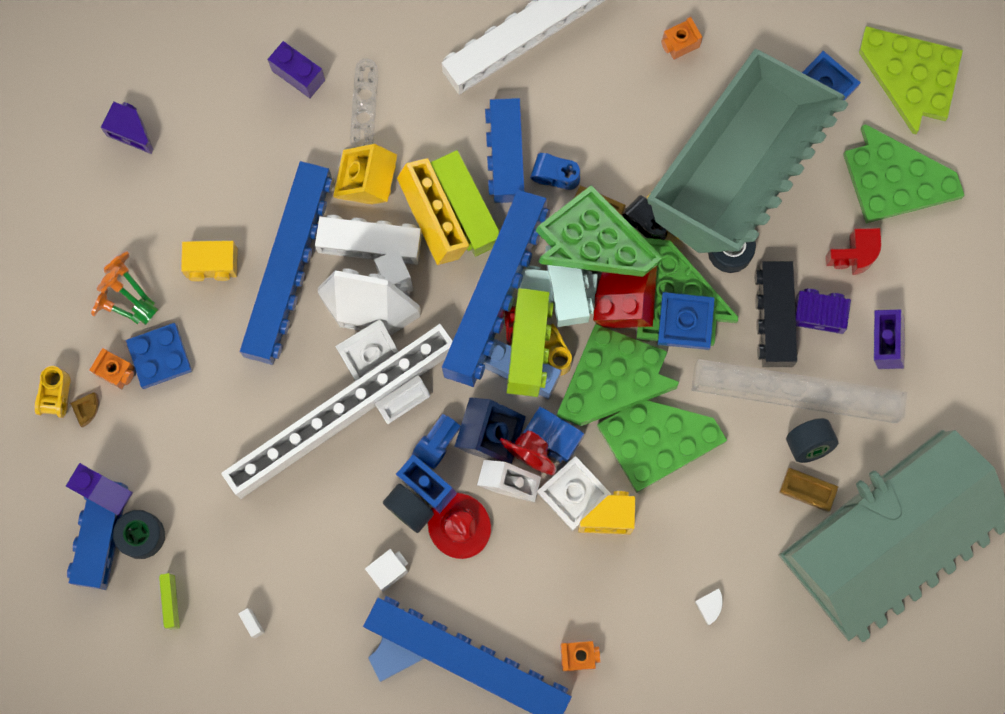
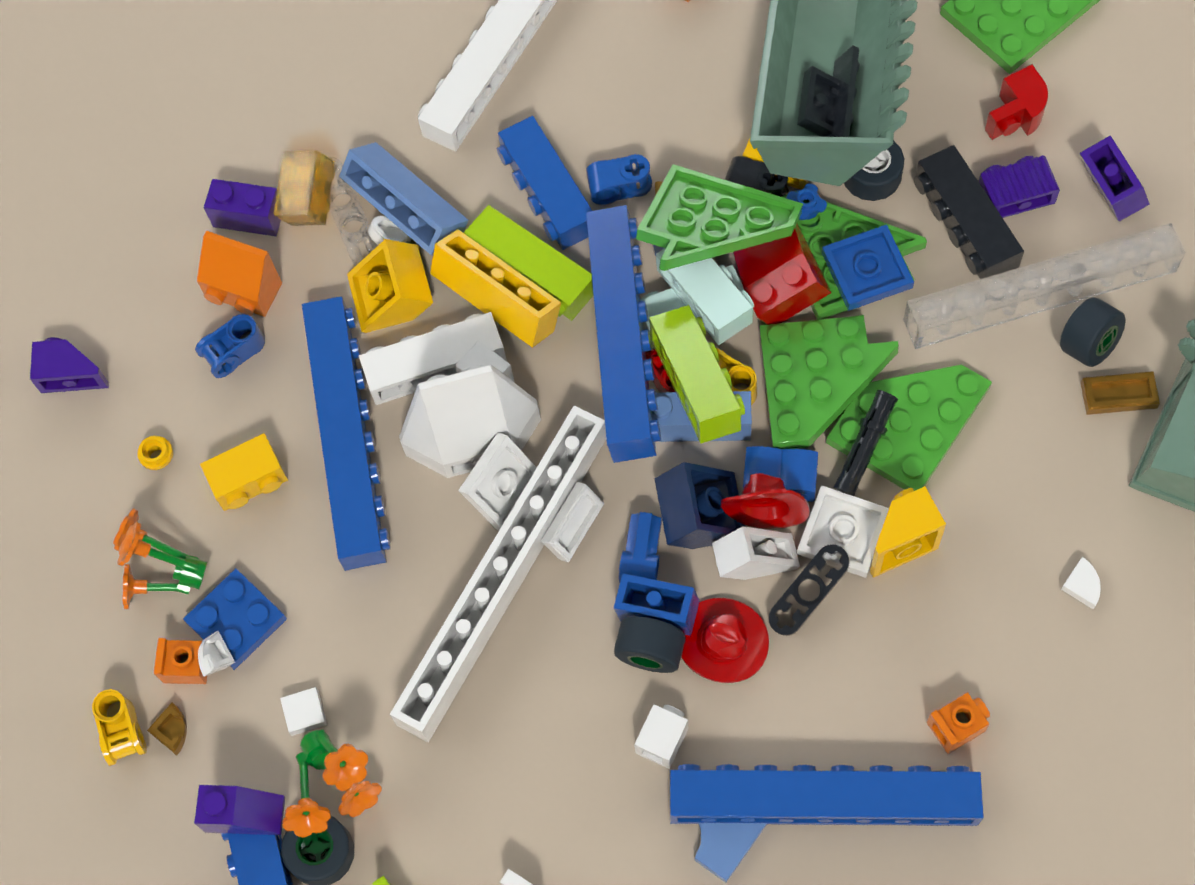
camera: 20 degrees left, 10 degrees down
(132, 376) = (214, 654): none -> white tile
(158, 209) = (153, 444): none -> yellow plate
(172, 495) = (343, 769): none -> orange plant
(173, 439) = (303, 711): none -> white tile
(237, 165) = (229, 346): none -> blue piece
(267, 119) = (237, 275): none -> orange slope
(342, 76) = (304, 188): none -> clear yellow brick
(384, 135) = (383, 228): none -> white tile
(403, 114) = (401, 195): none -> medium blue brick
(508, 523) = (833, 574): none -> black beam
(622, 439) = (868, 436): none -> black pin
(676, 248) = (816, 204): none -> blue plate
(723, 188) = (829, 99): none -> black bracket

